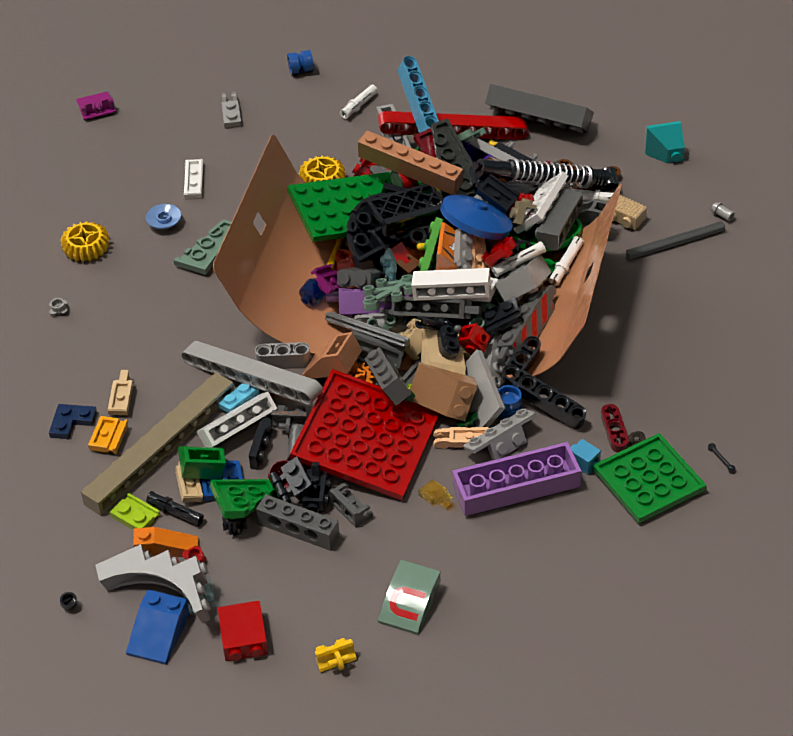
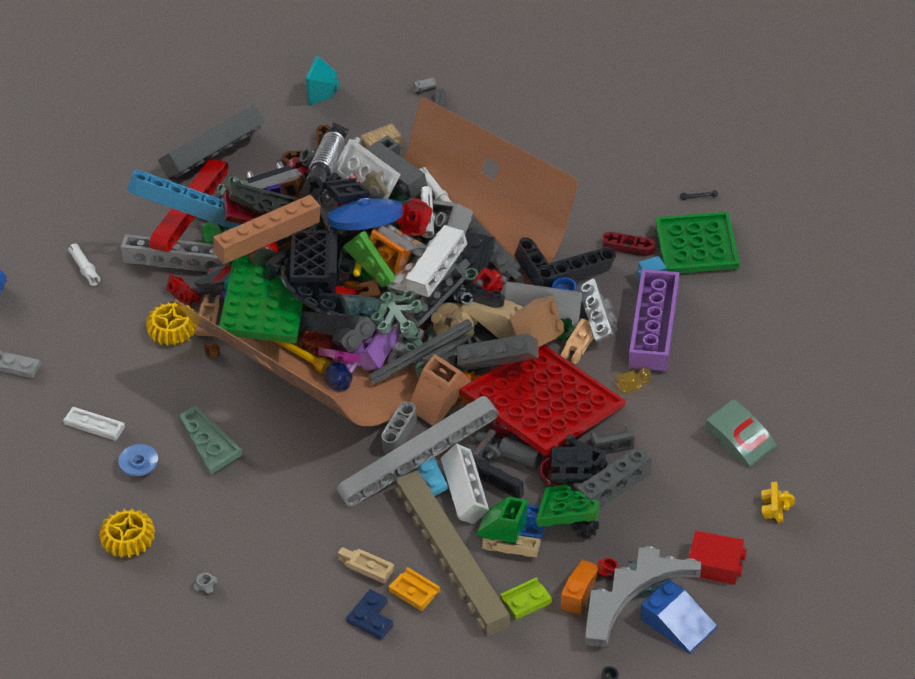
camera: 65 degrees left, 0 degrees up
(156, 499) = (526, 573): black pin -> none

